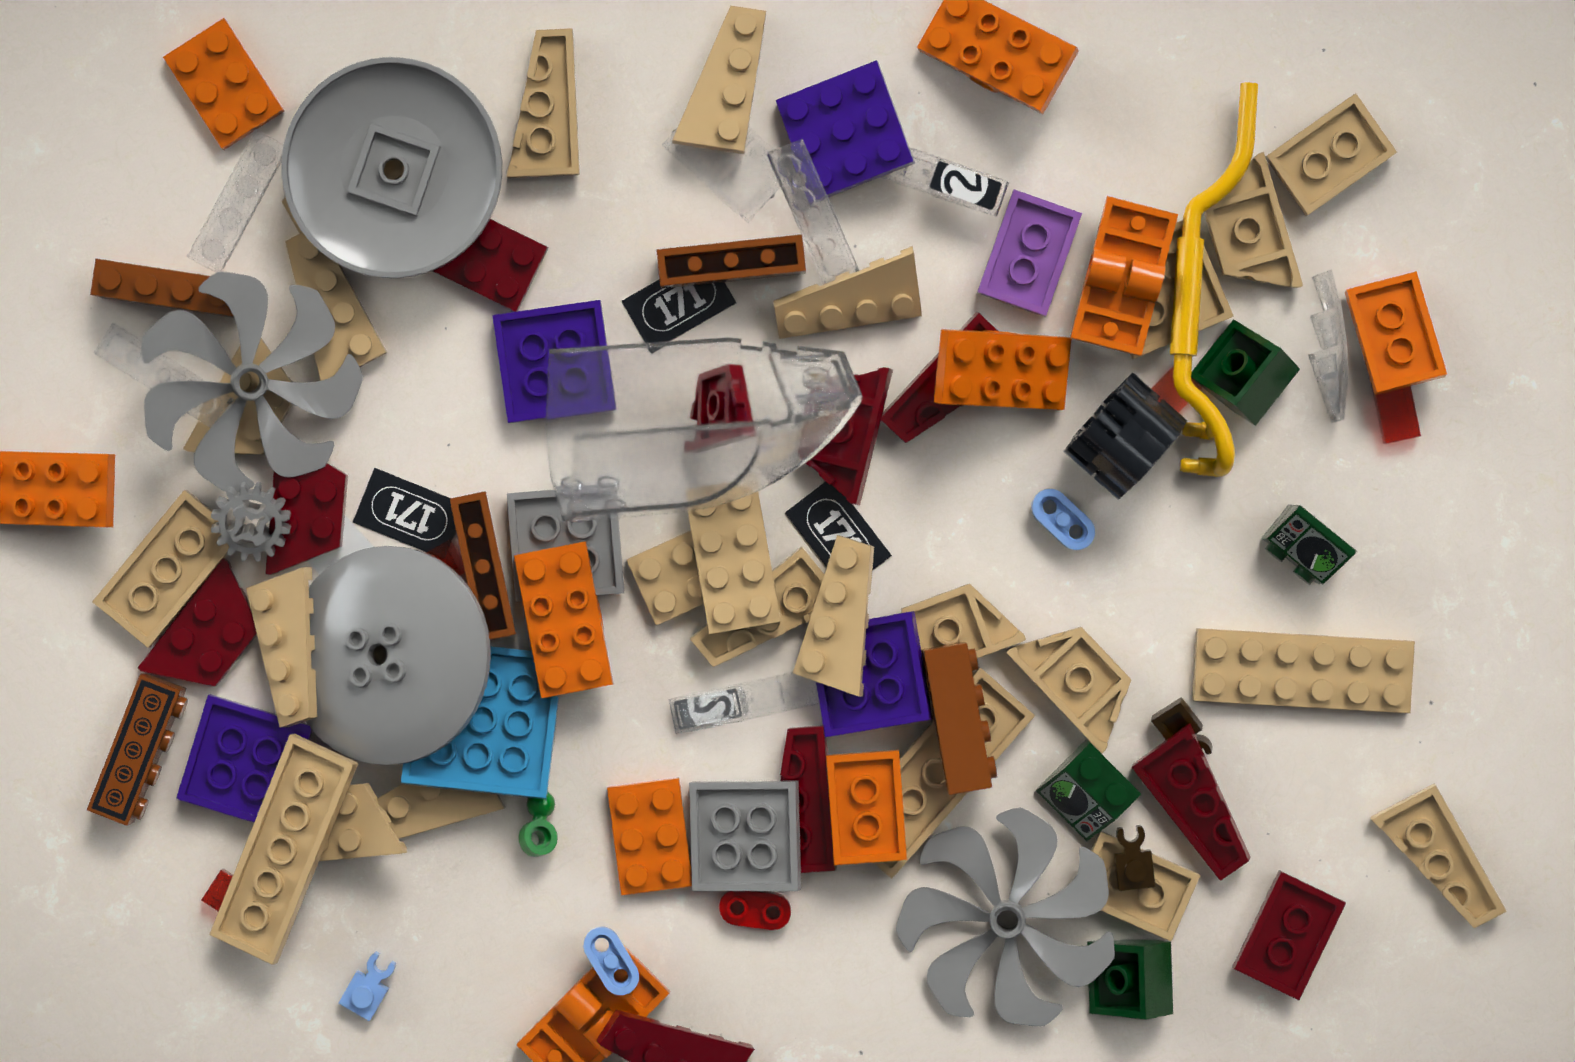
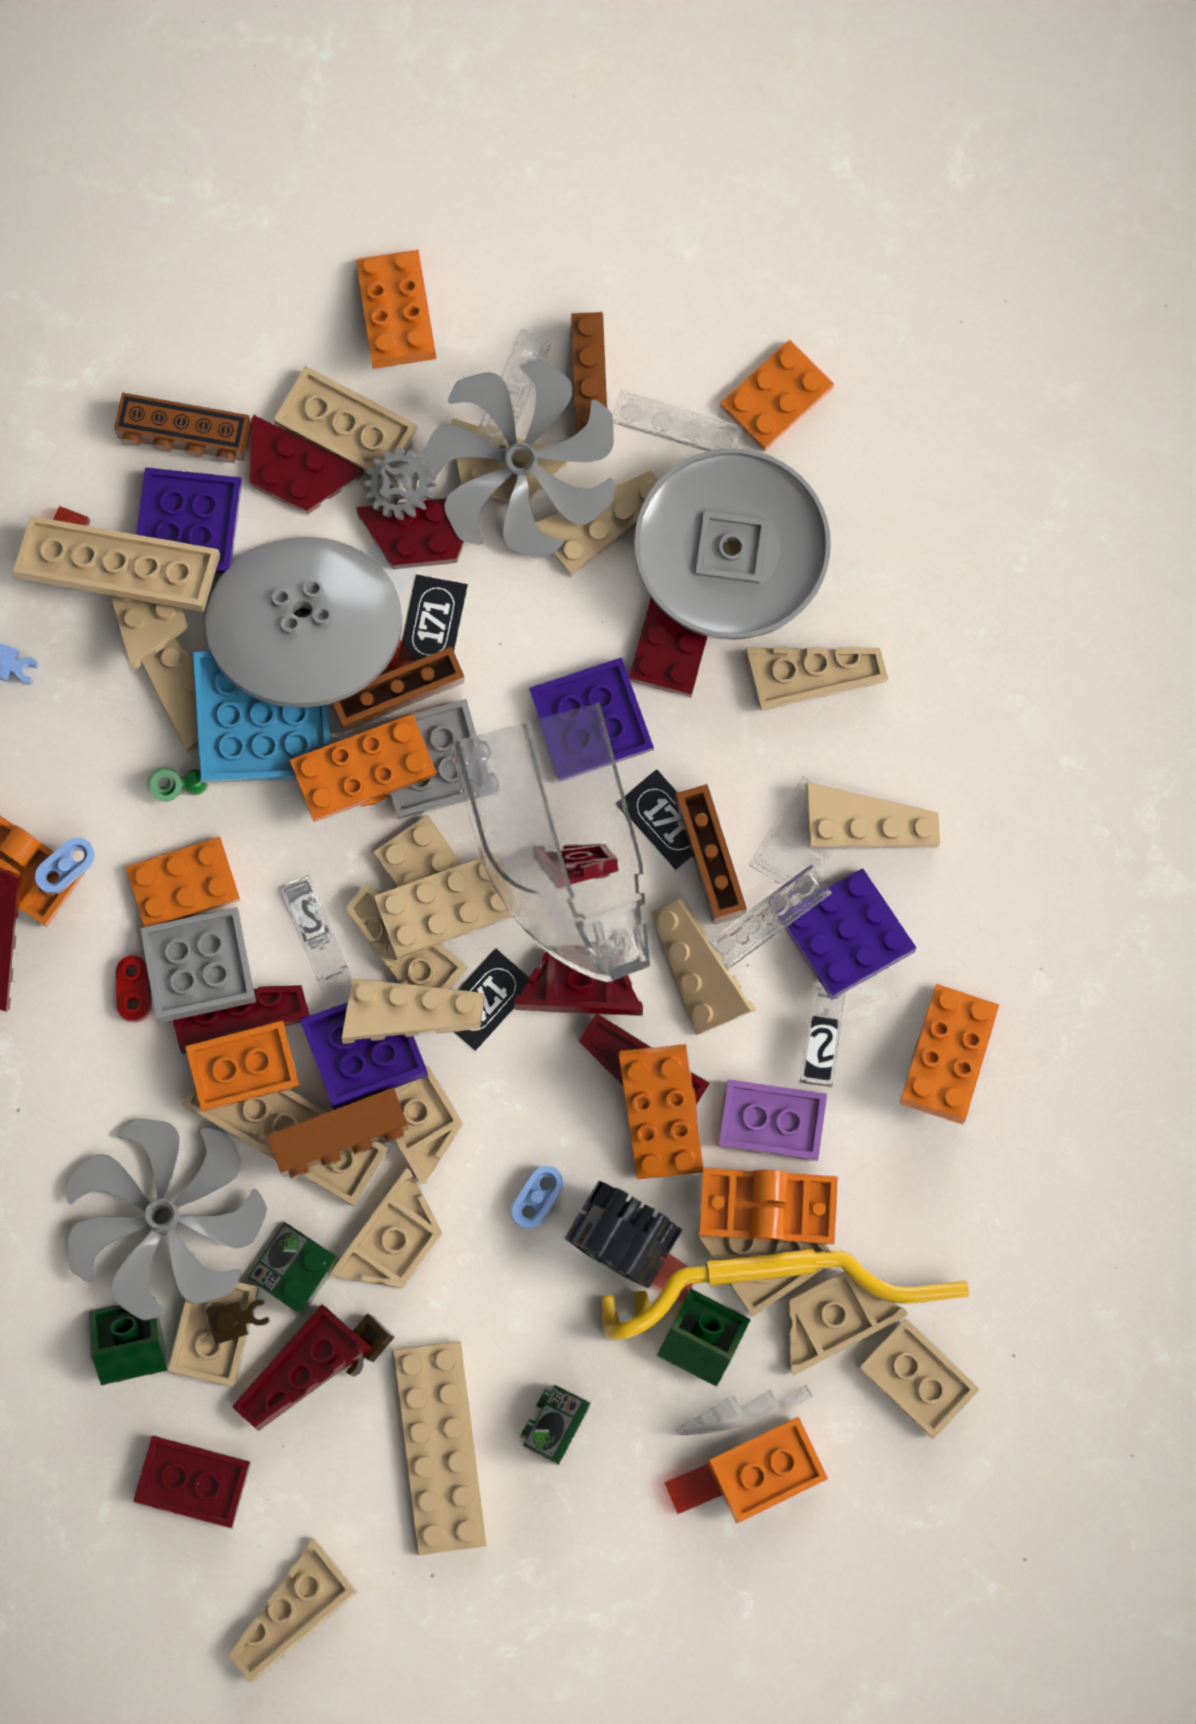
camera: 80 degrees right, 10 degrees down
(282, 625) = (310, 529): tan wing -> none

